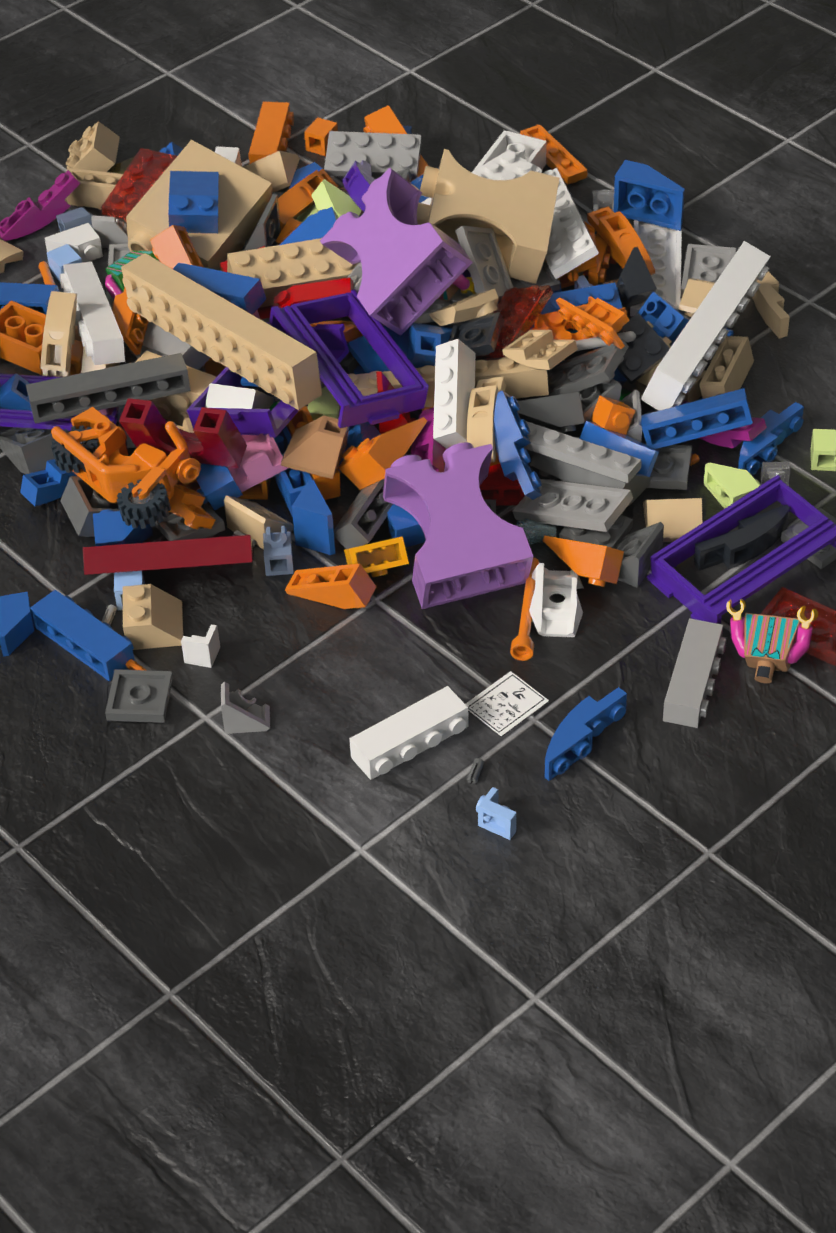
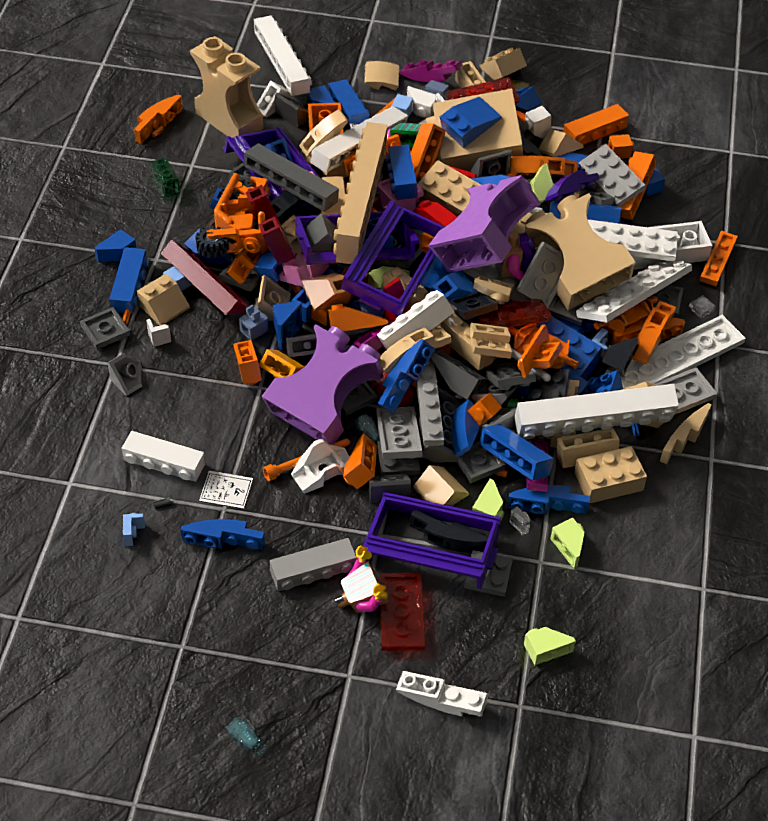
camera: 50 degrees right, 5 degrees up
(648, 196) = (704, 316): blue slope -> none
(774, 374) = (610, 474): none -> tan brick

